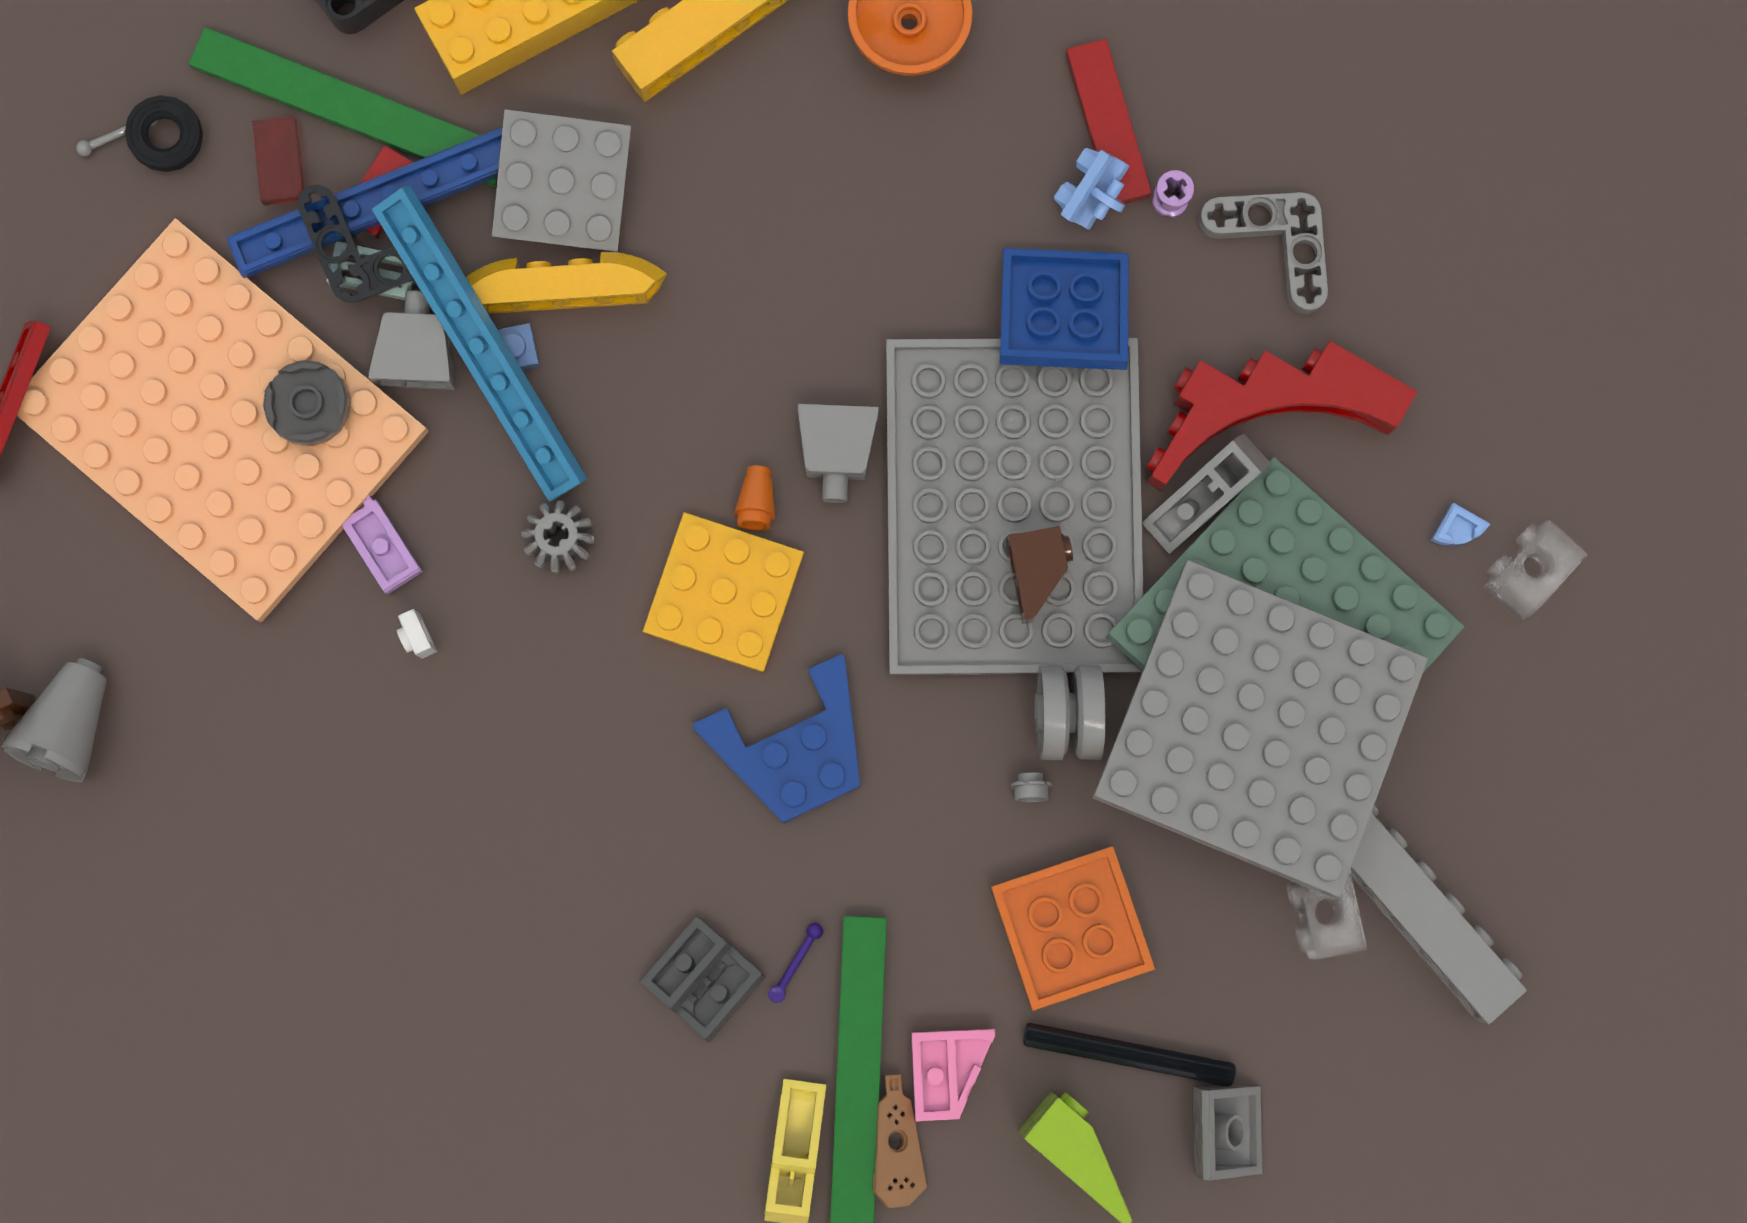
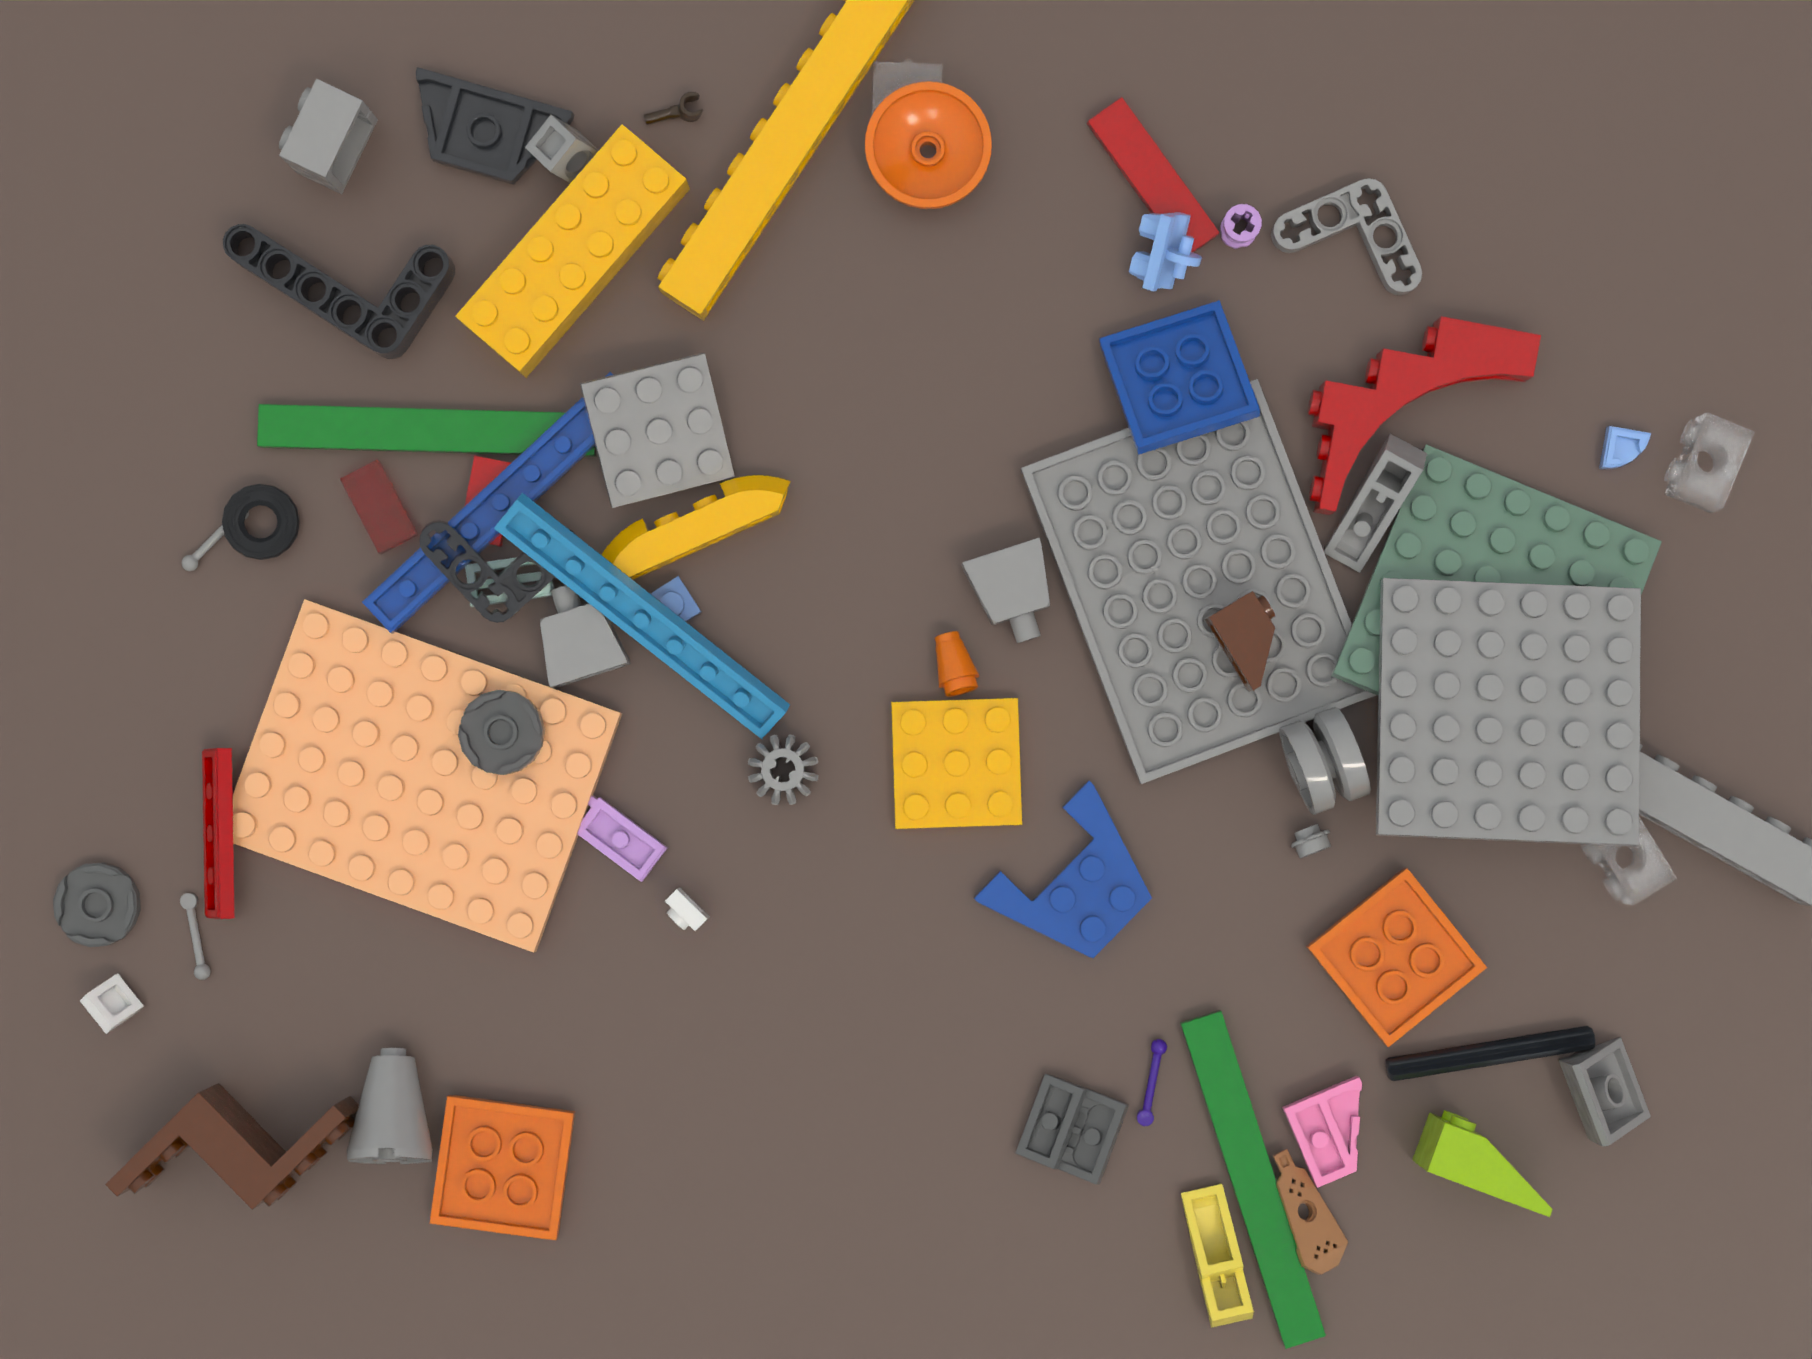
camera: 15 degrees left, 5 degrees up
(148, 813) = (502, 1167): none -> orange plate

